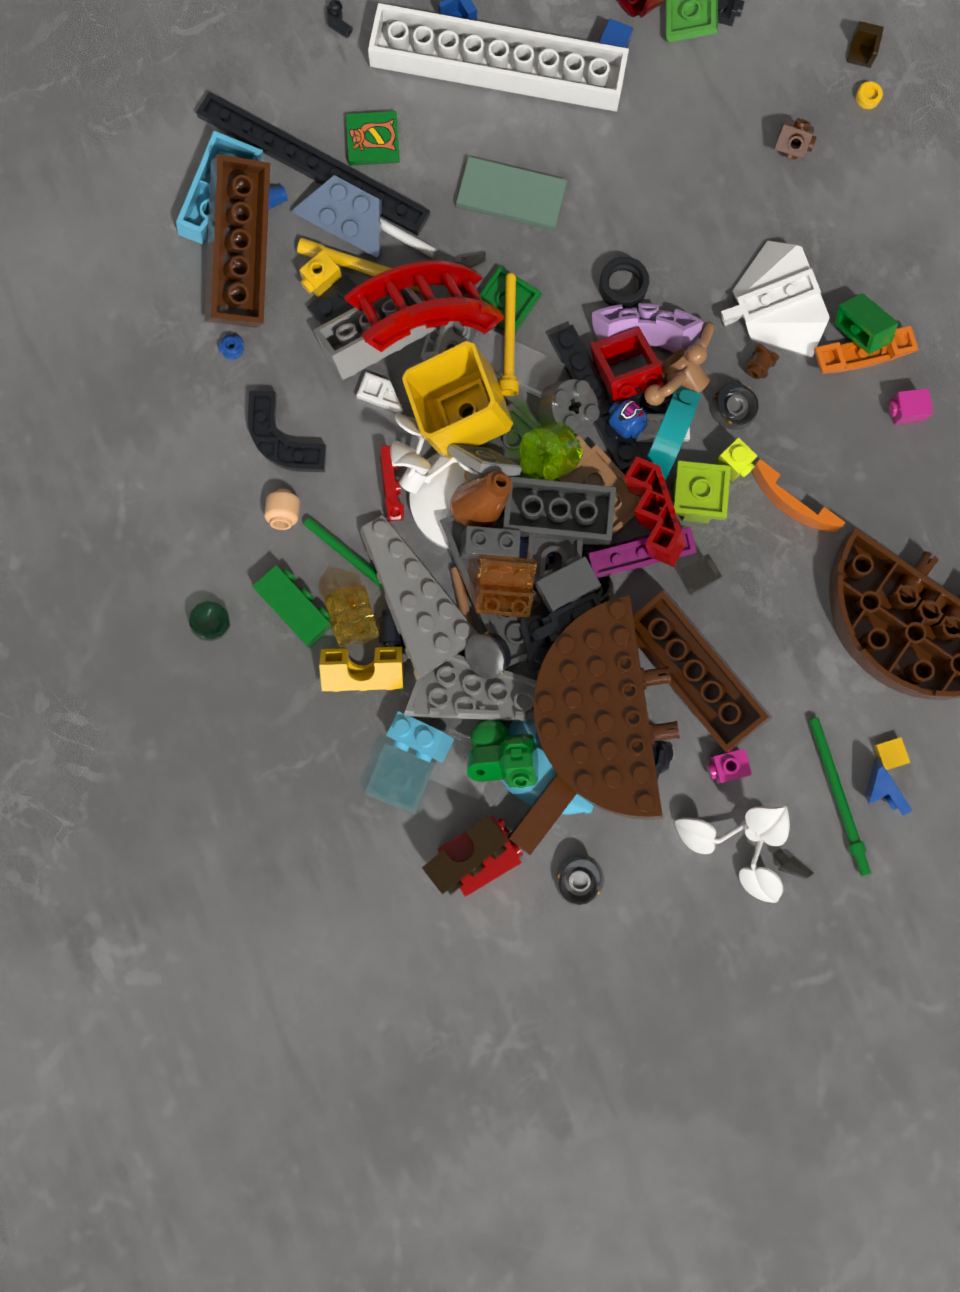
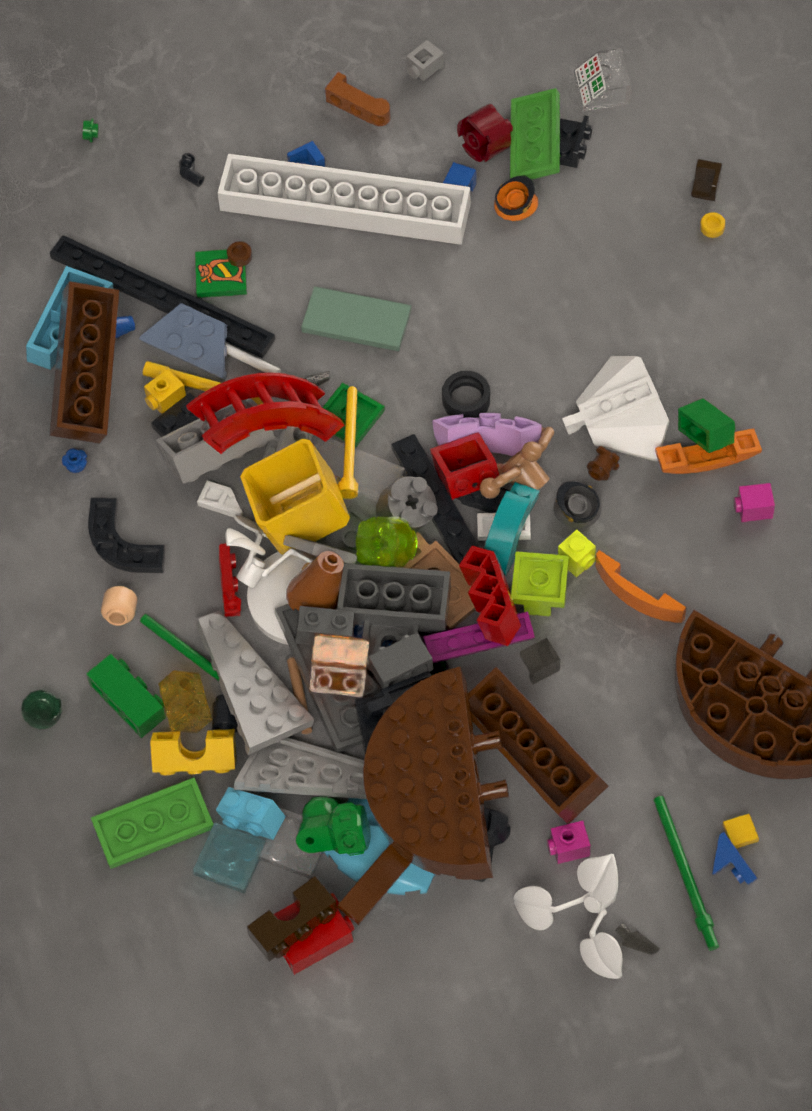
camera: 10 degrees right, 20 degrees down
(323, 742) = (152, 823): none -> bright green plate
(391, 118) = (239, 254): none -> reddish brown tile
(487, 654) = (320, 733): flat silver piece -> none
(579, 880) = (413, 955): flat silver piece -> none
(628, 418) = (466, 514): blue head -> none
(672, 61) = (516, 199): none -> orange piece
(795, 138) = (627, 263): reddish brown brick -> none

